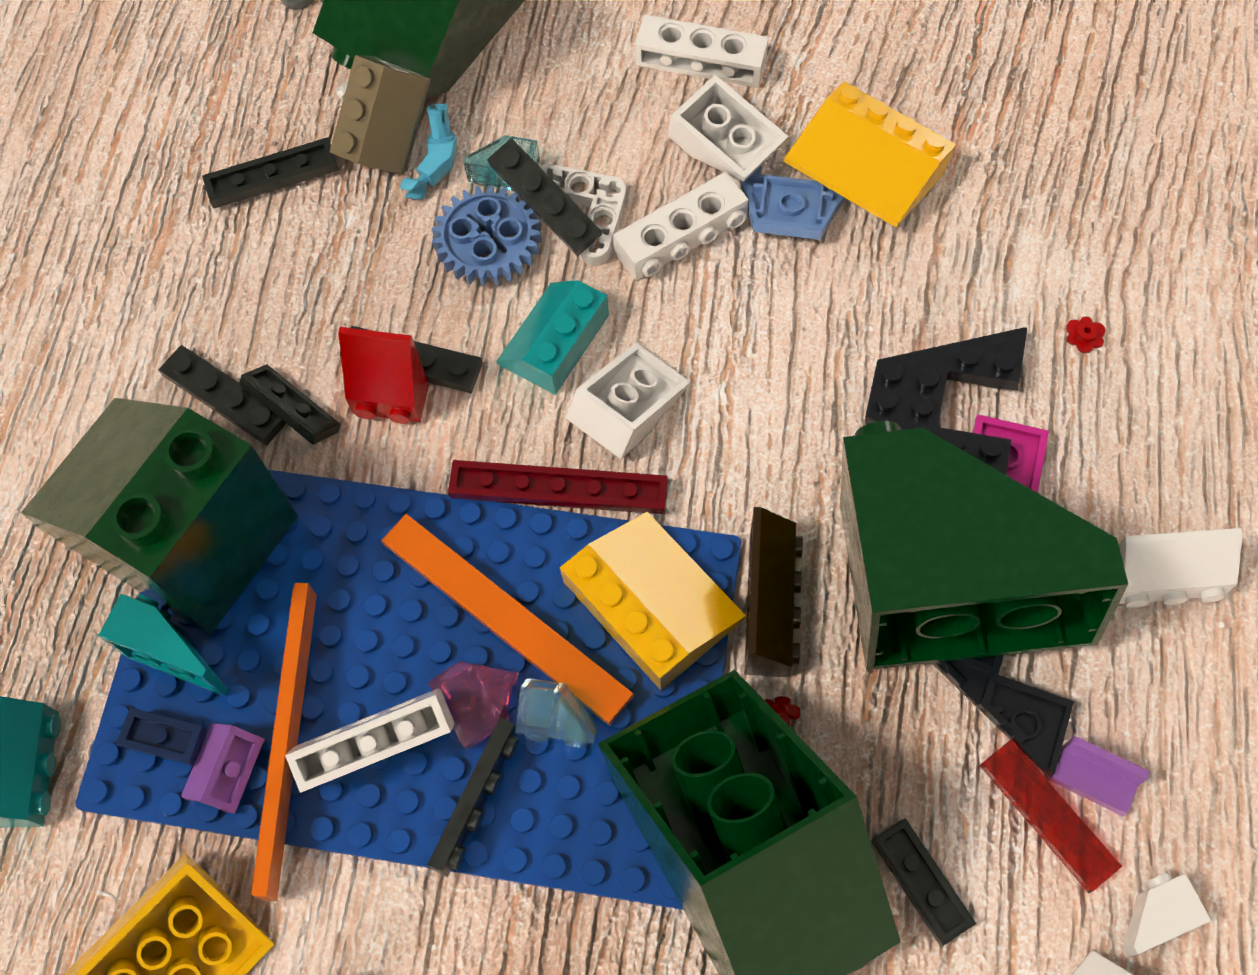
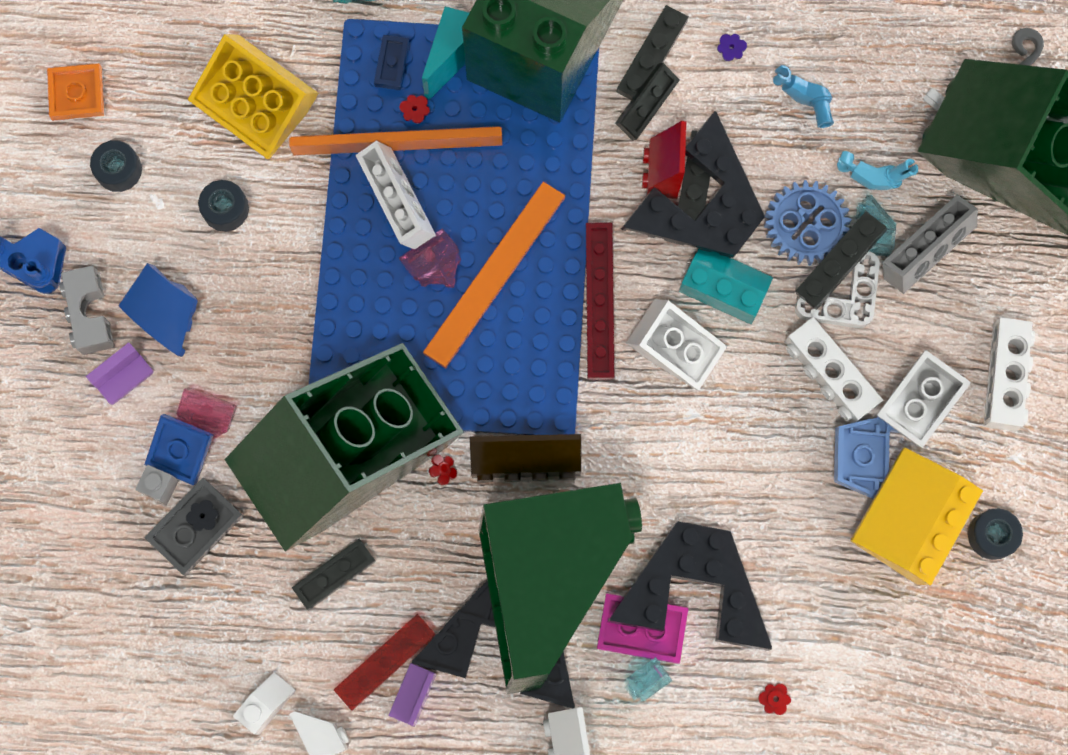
camera: 80 degrees right, 10 degrees up
(223, 767) = (374, 105): medium lavender panel -> none
(233, 702) = (419, 103): none -> red plant
(234, 300) = (733, 41): none -> dark purple plant
(270, 173) = (846, 53): pearl dark grey plate -> none
(318, 217) = (806, 94): none -> dark azure arm
(379, 114) = (899, 123): dark tan slope -> none
(464, 322) = (727, 217): none -> black wing
(468, 812) = (354, 266): pearl dark grey plate -> none
(535, 106) = (930, 243): none -> light grey brick
(553, 711) = (424, 313): clear light blue slope -> none
(651, 598) = (517, 373): yellow slope -> none
(892, 80) = (1002, 527): none -> black wheel
(1073, 466) = (647, 680): none -> clear light blue slope

